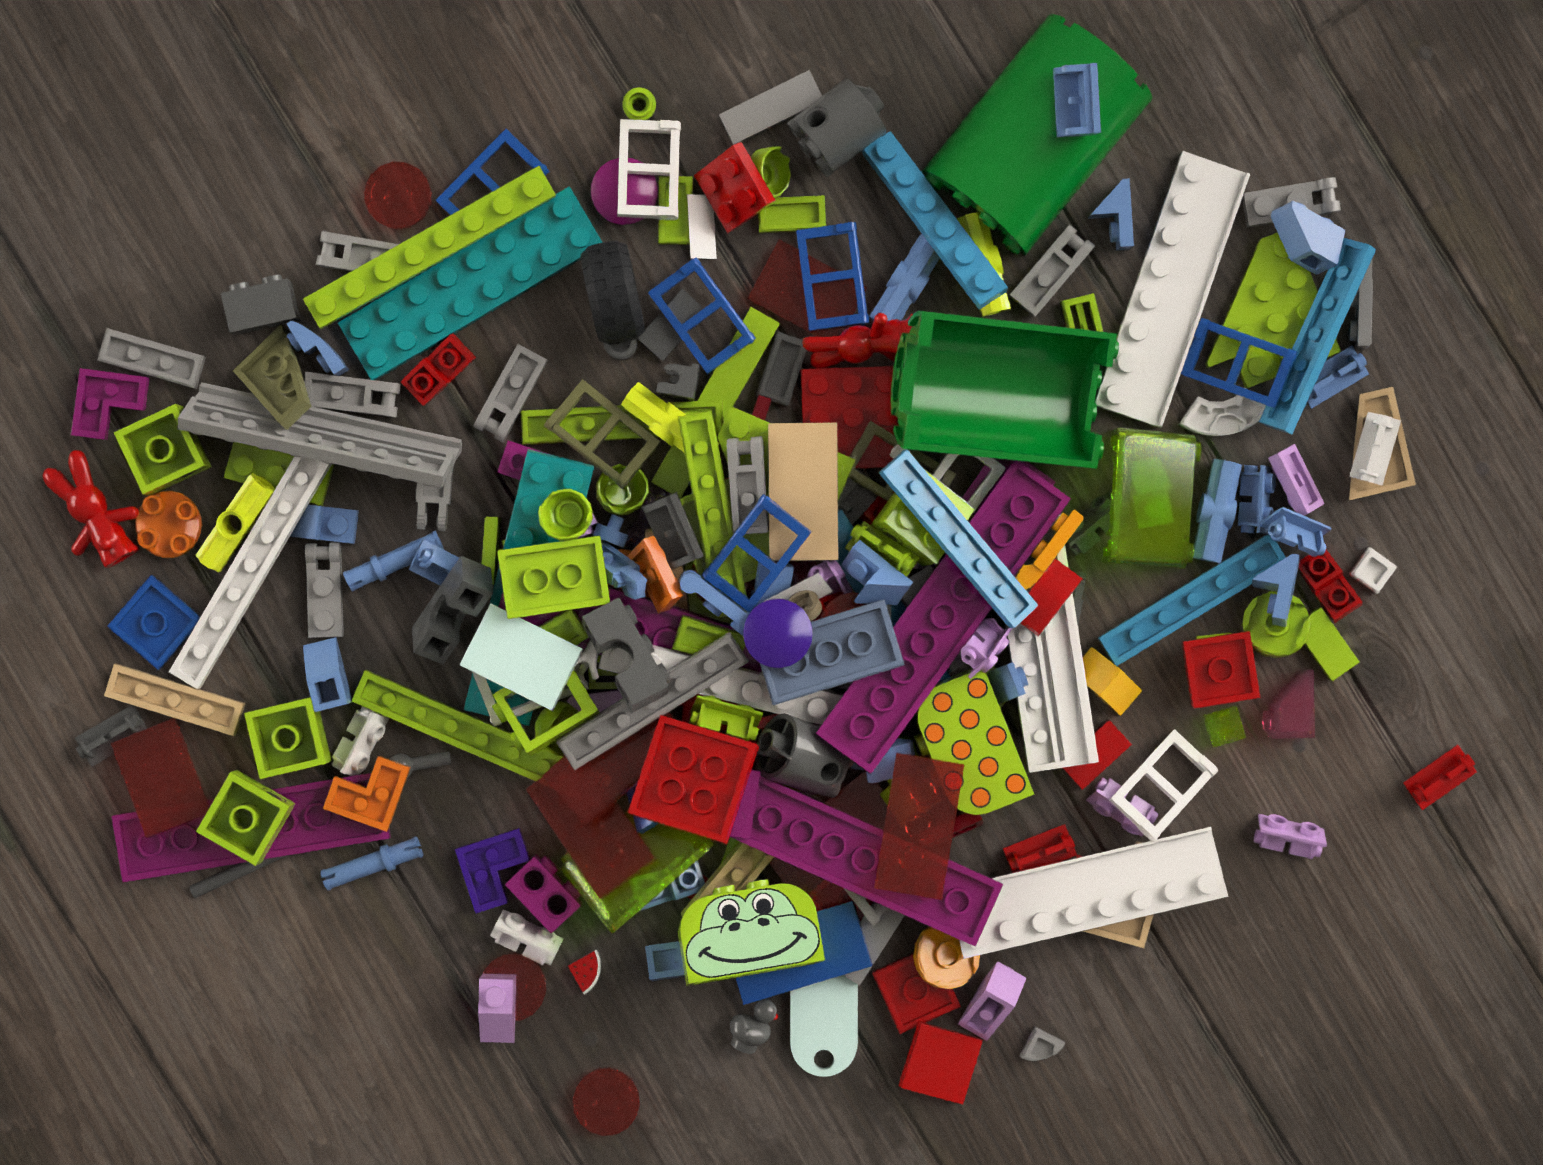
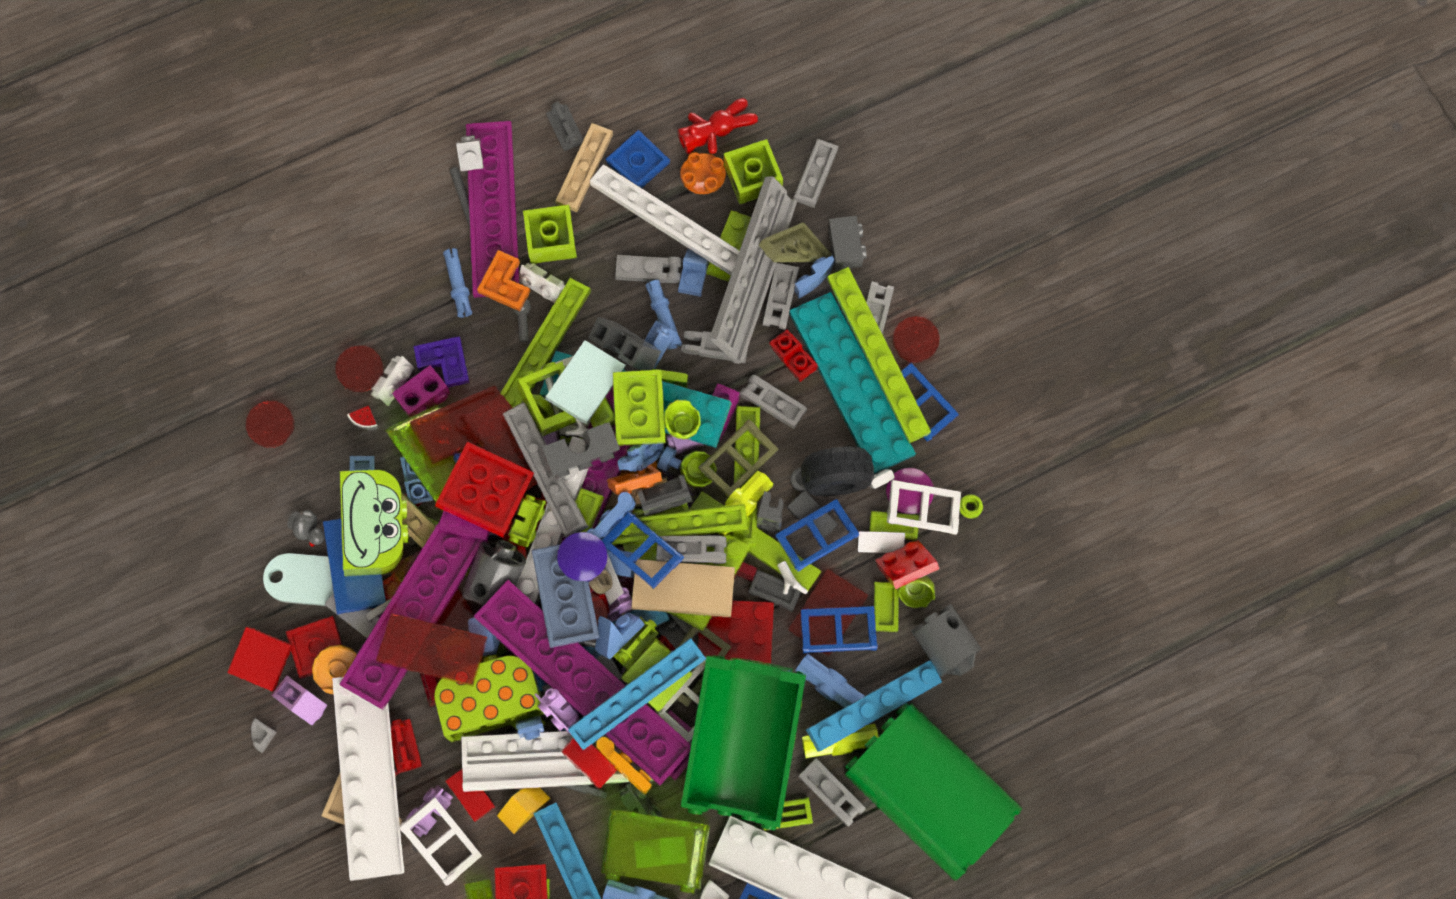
camera: 95 degrees right, 15 degrees down
(98, 394) = (794, 138): magenta plate -> none
(161, 777) = (532, 153): clear red tile -> none
(172, 869) = (469, 153): none -> bracket
(224, 538) = (690, 207): neon yellow piece -> none
(245, 817) = (498, 199): lime brick -> none
(326, 675) = (589, 262): medium blue slope -> none
(497, 1007) = (346, 353): lavender slope -> none
(611, 230) = (881, 478): none -> white tile
(768, 349) = (789, 579): none -> white bar
(770, 108) = (963, 597): light grey tile -> none
(858, 342) = (788, 639): red animal -> none
(1077, 100) = (955, 811): medium blue hinge -> none
(1118, 205) = (877, 844): medium blue slope -> none

